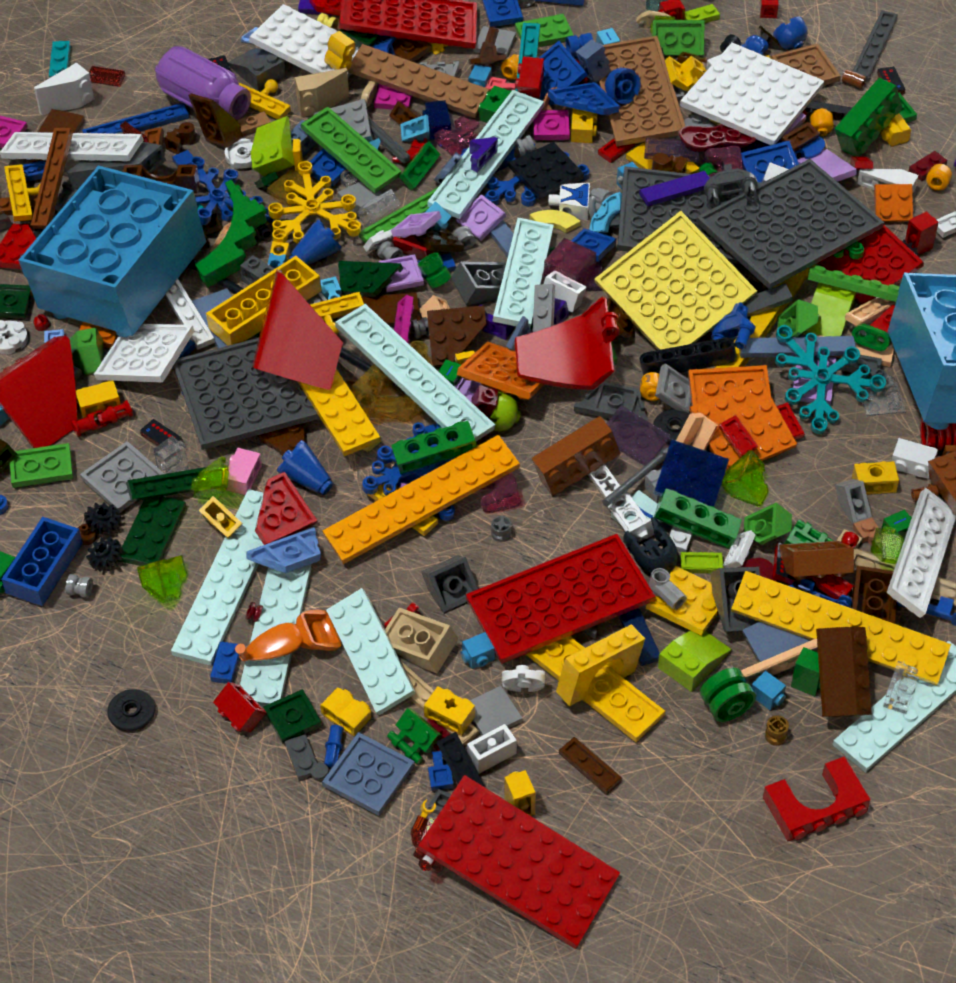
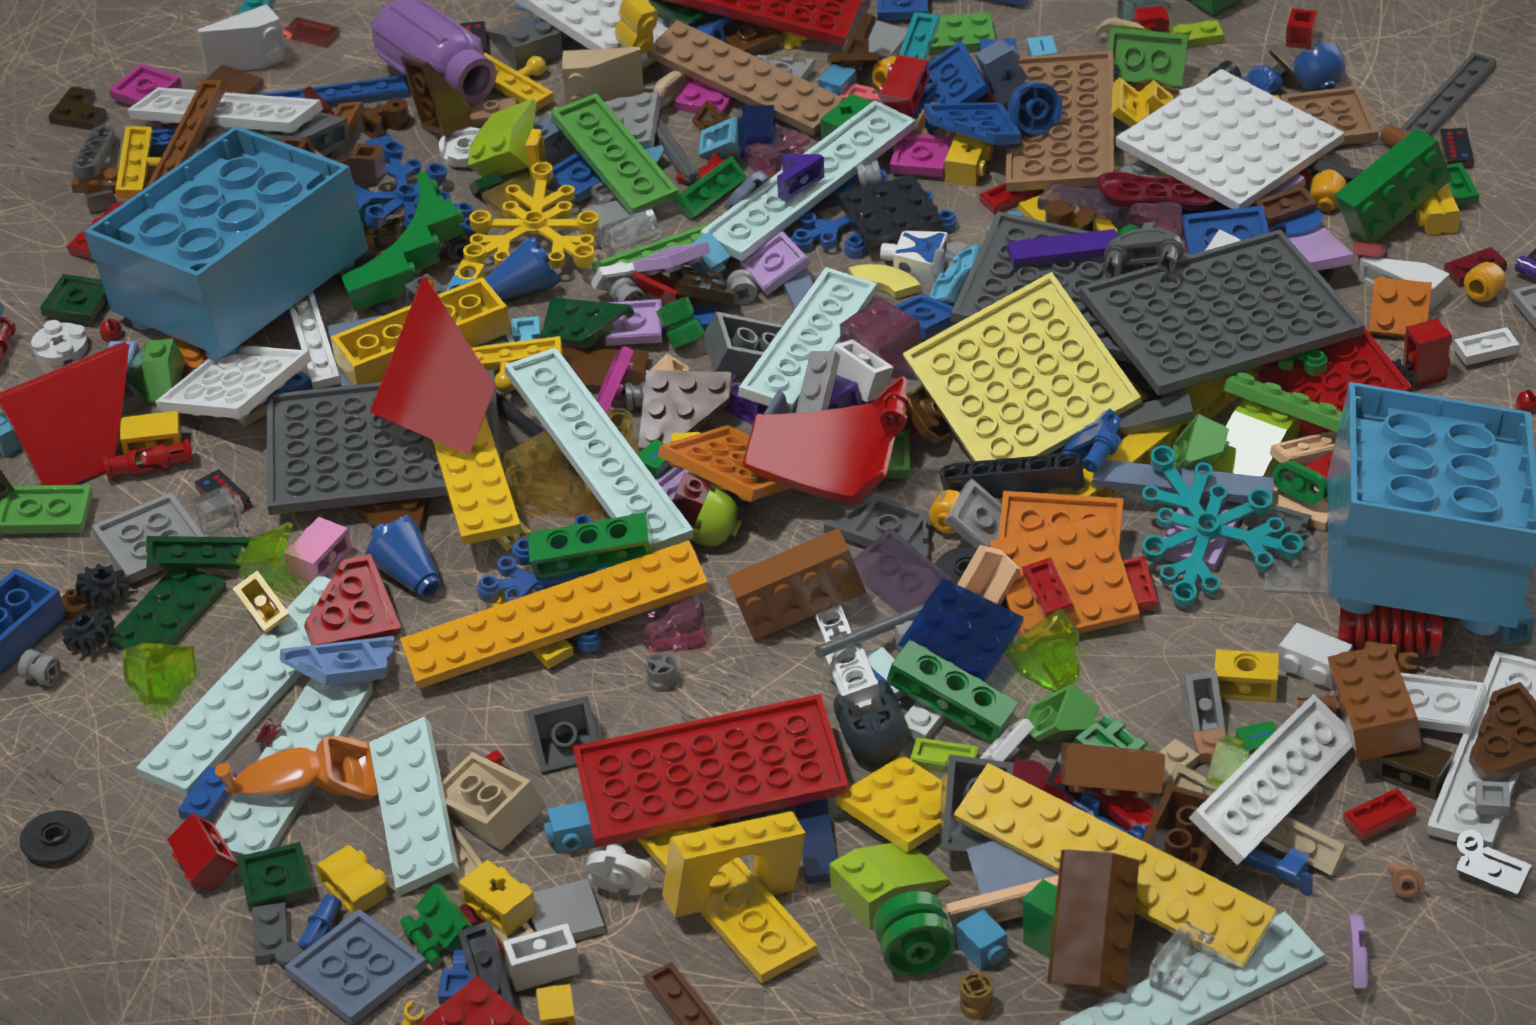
camera: 15 degrees right, 10 degrees down
(663, 587) = (867, 777): light grey piece -> none
(850, 539) = (1174, 751): red hinge -> none

